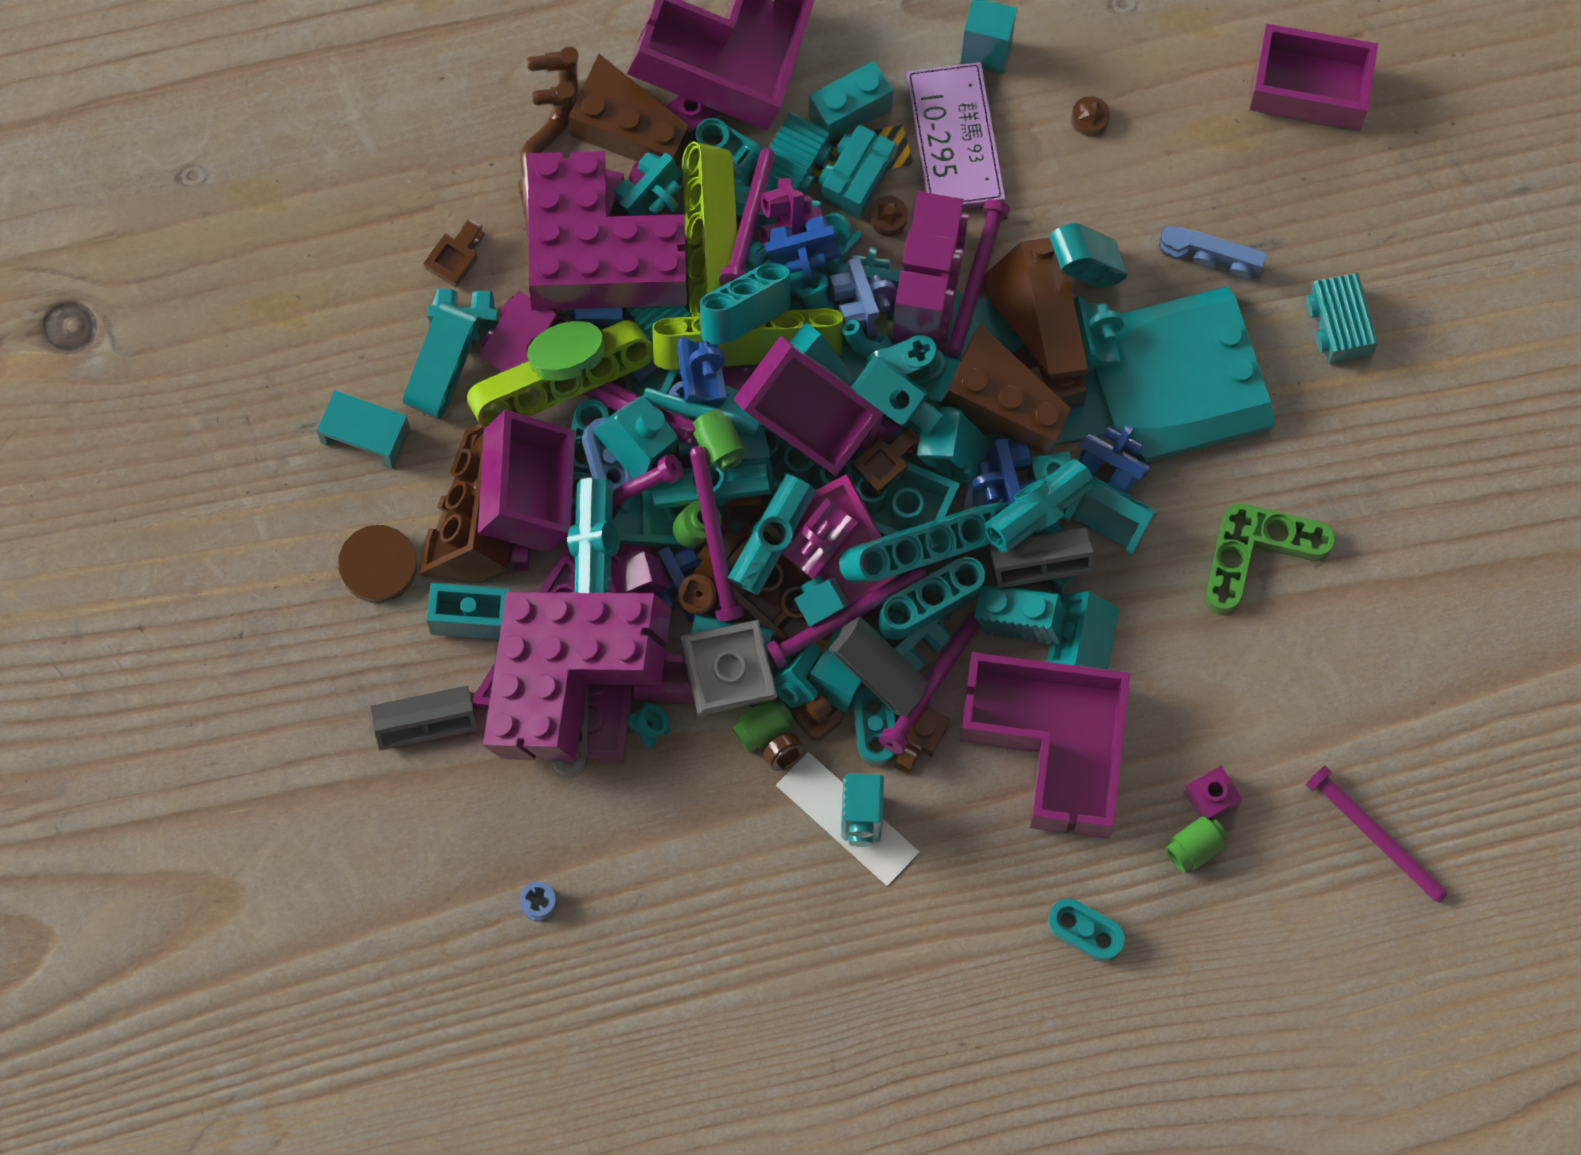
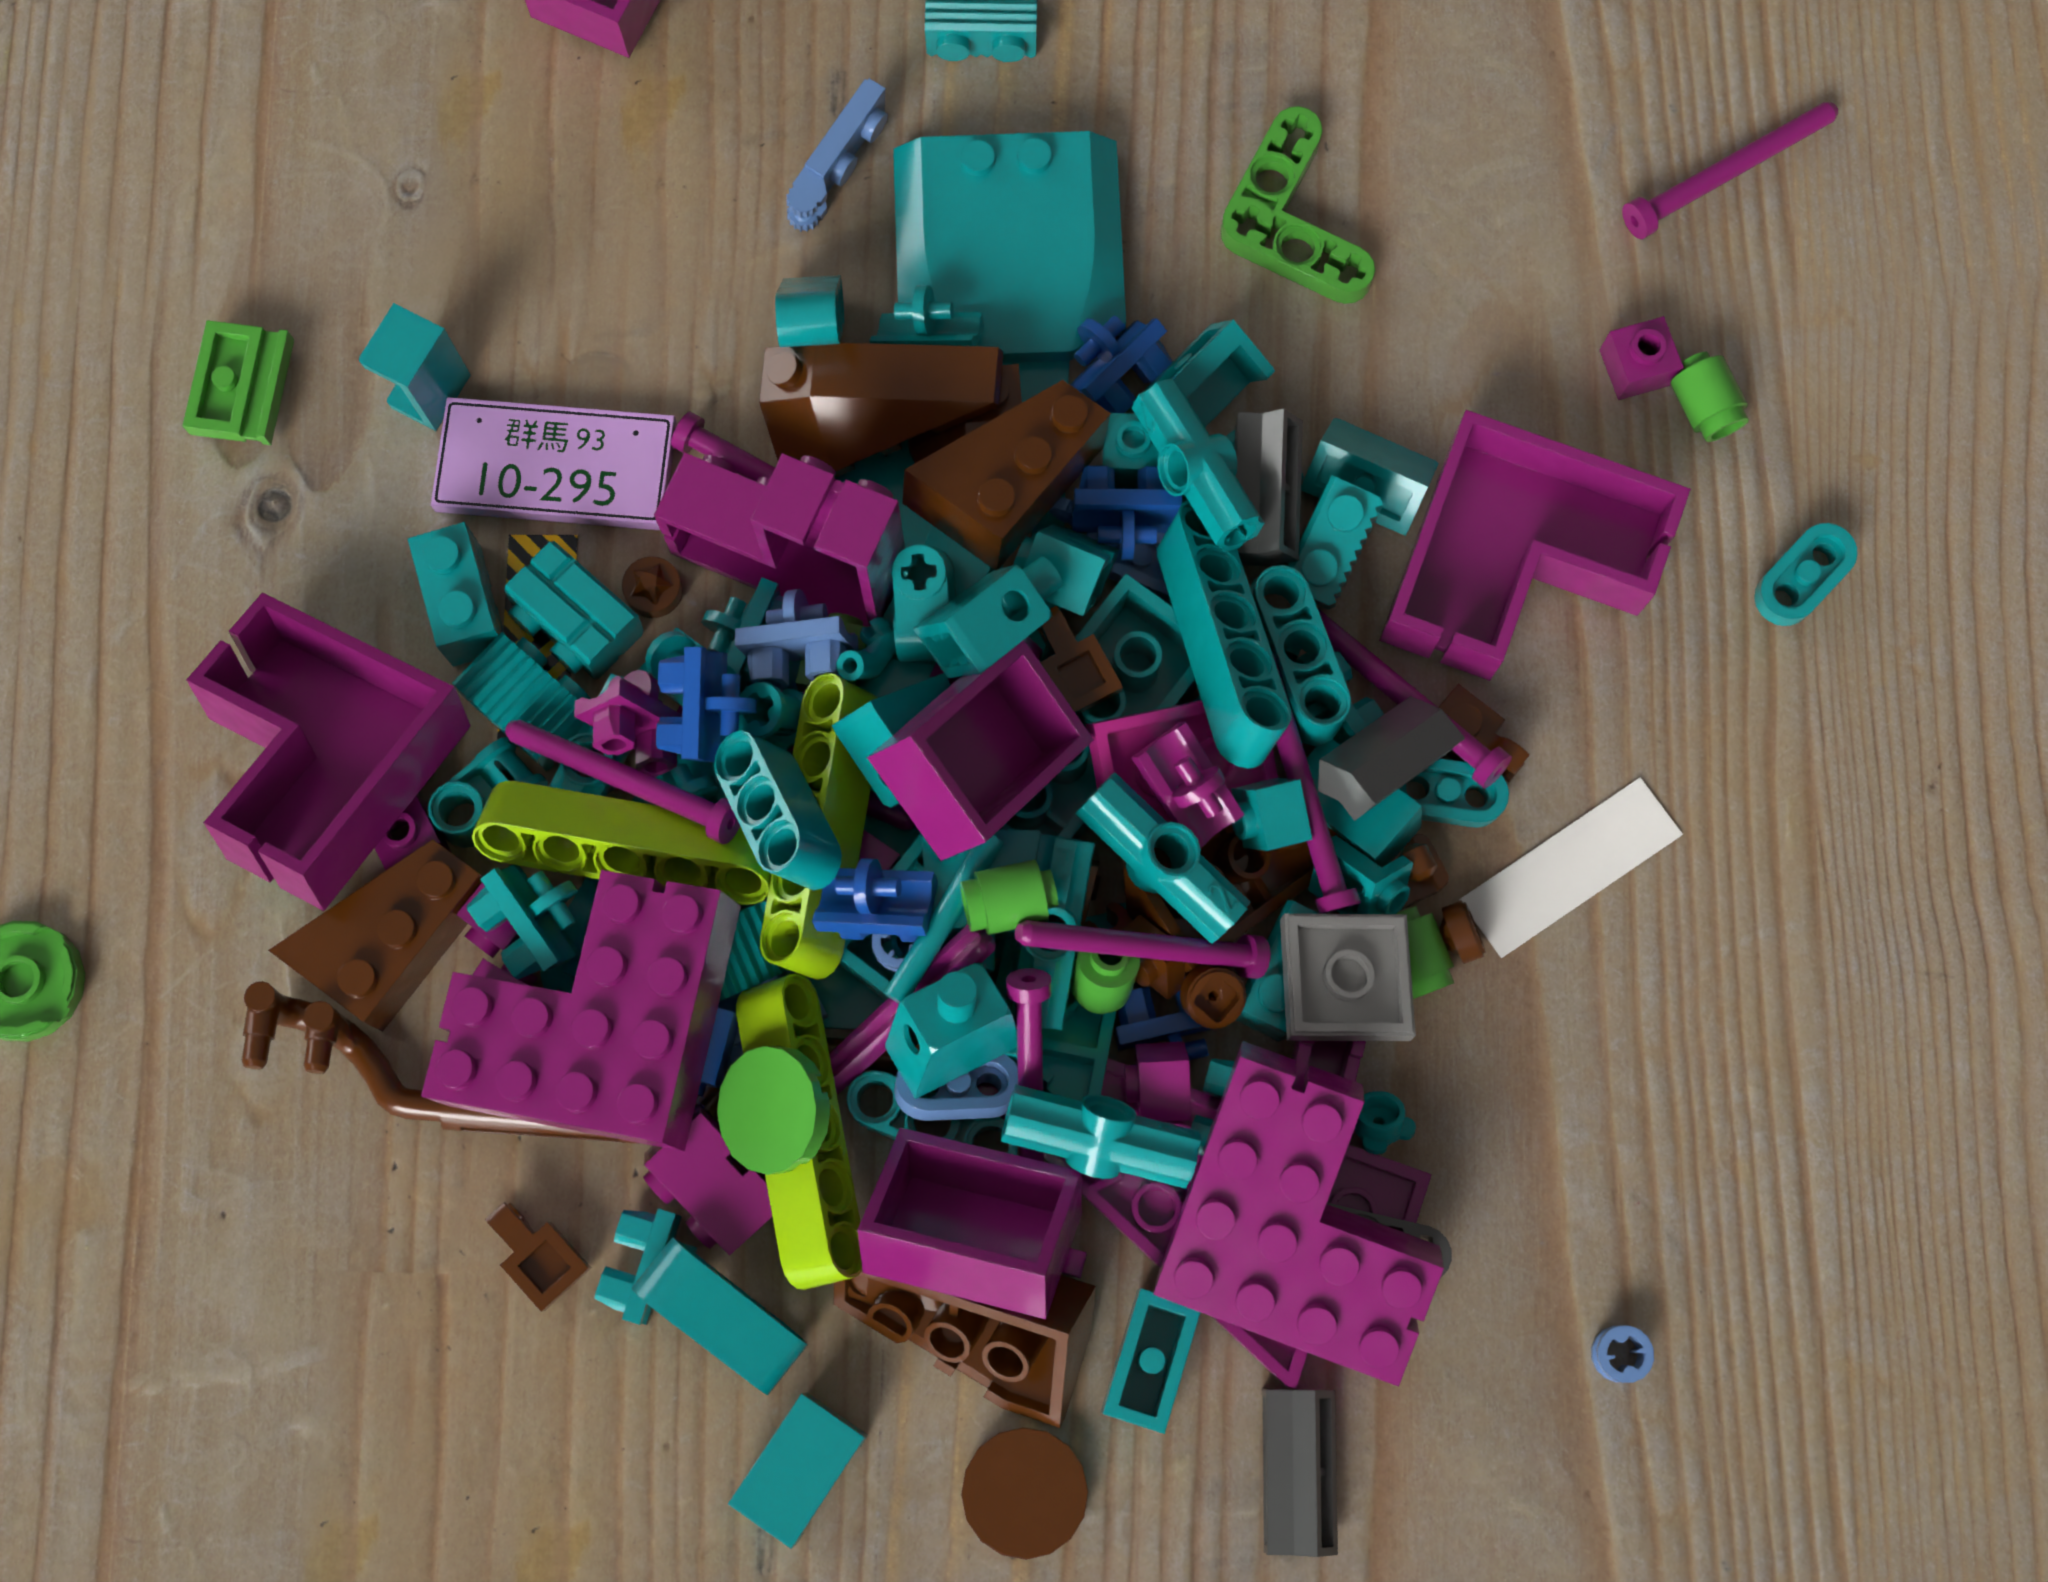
camera: 75 degrees left, 5 degrees up
(862, 809) = (1592, 833): teal brick -> none
(1090, 116) = (575, 269): reddish brown tile -> none

